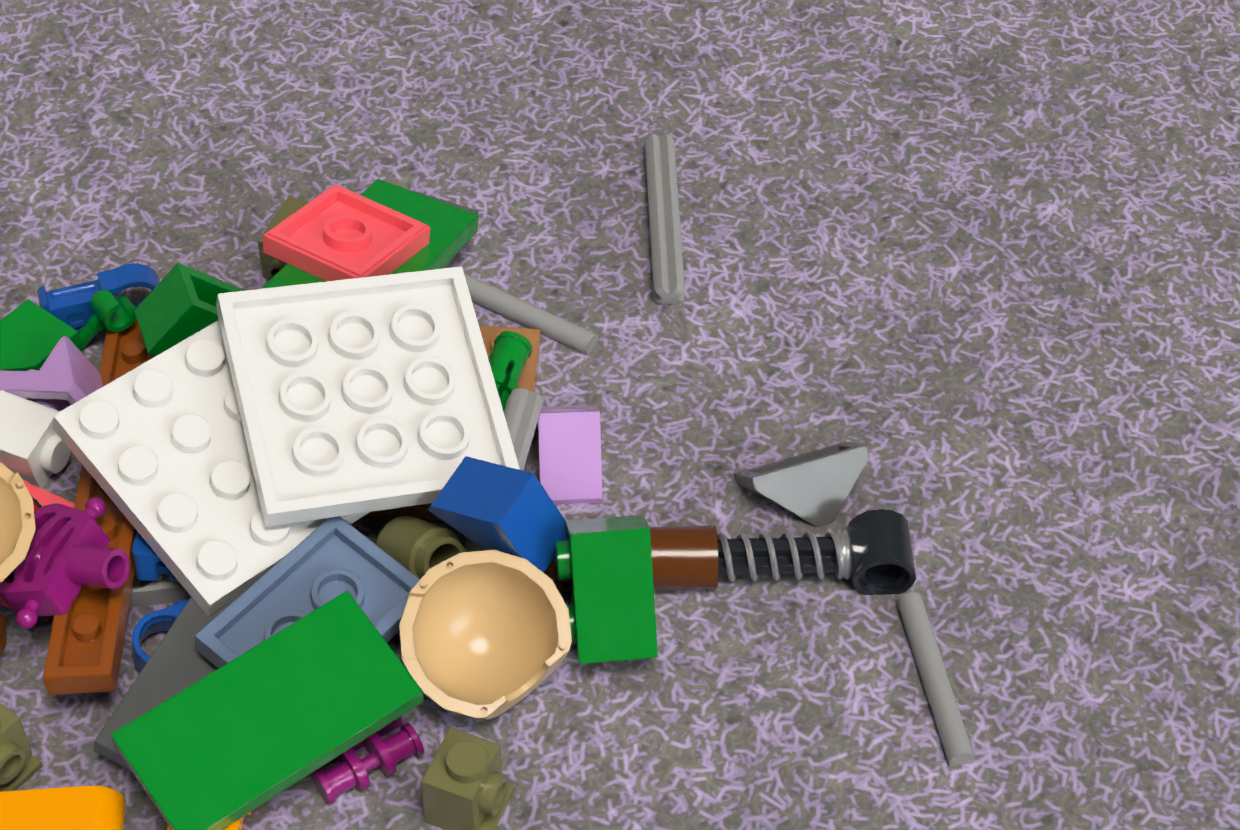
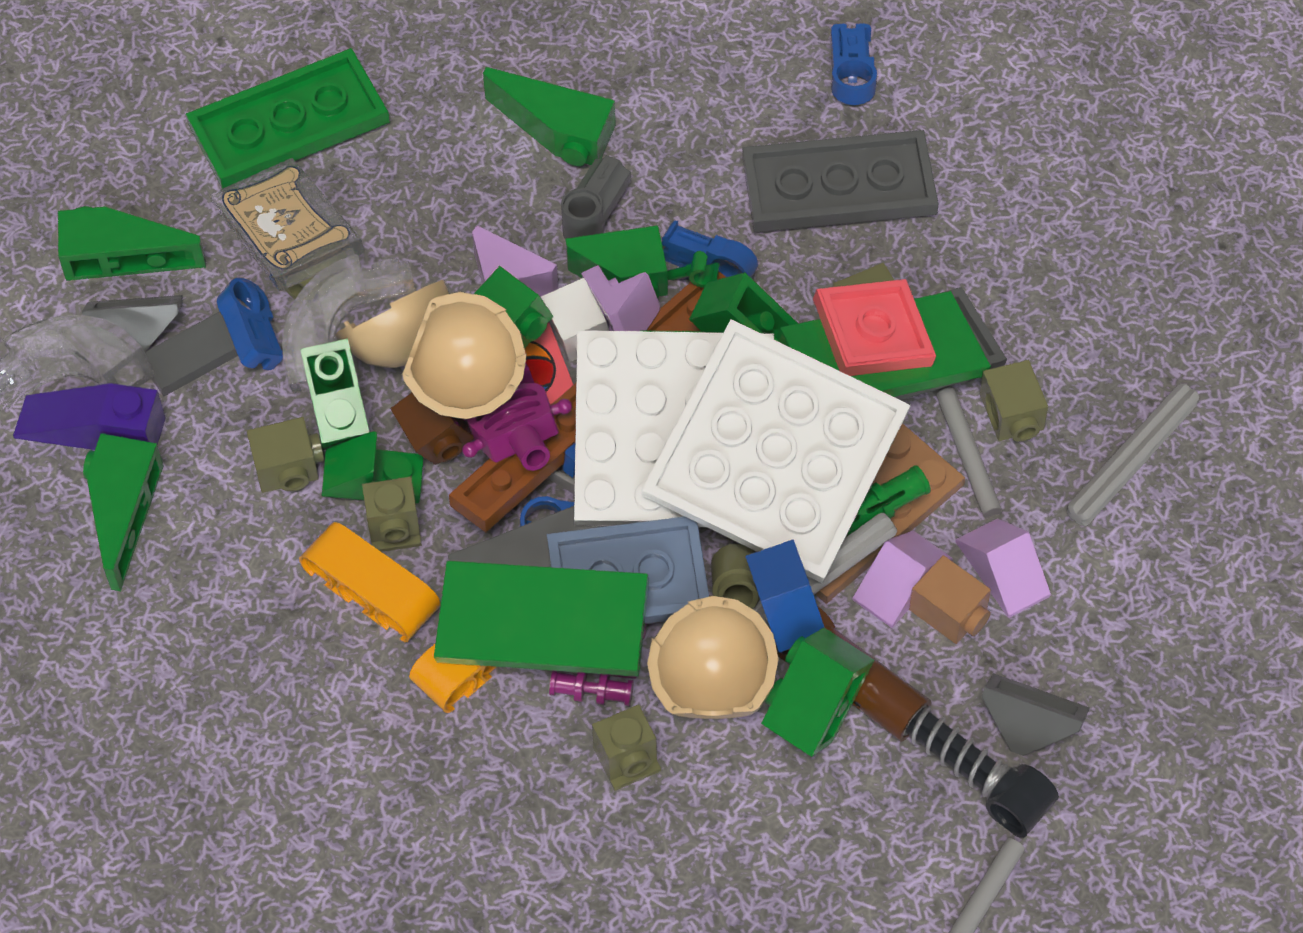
camera: 45 degrees right, 10 degrees up
(78, 70) = (852, 60): none -> blue piece
(166, 169) = (839, 181): none -> dark grey plate
(521, 238) = (1014, 401): none -> olive brick
(640, 434) = (951, 600): none -> medium nougat brick
(651, 372) = (1006, 565): none -> lavender slope

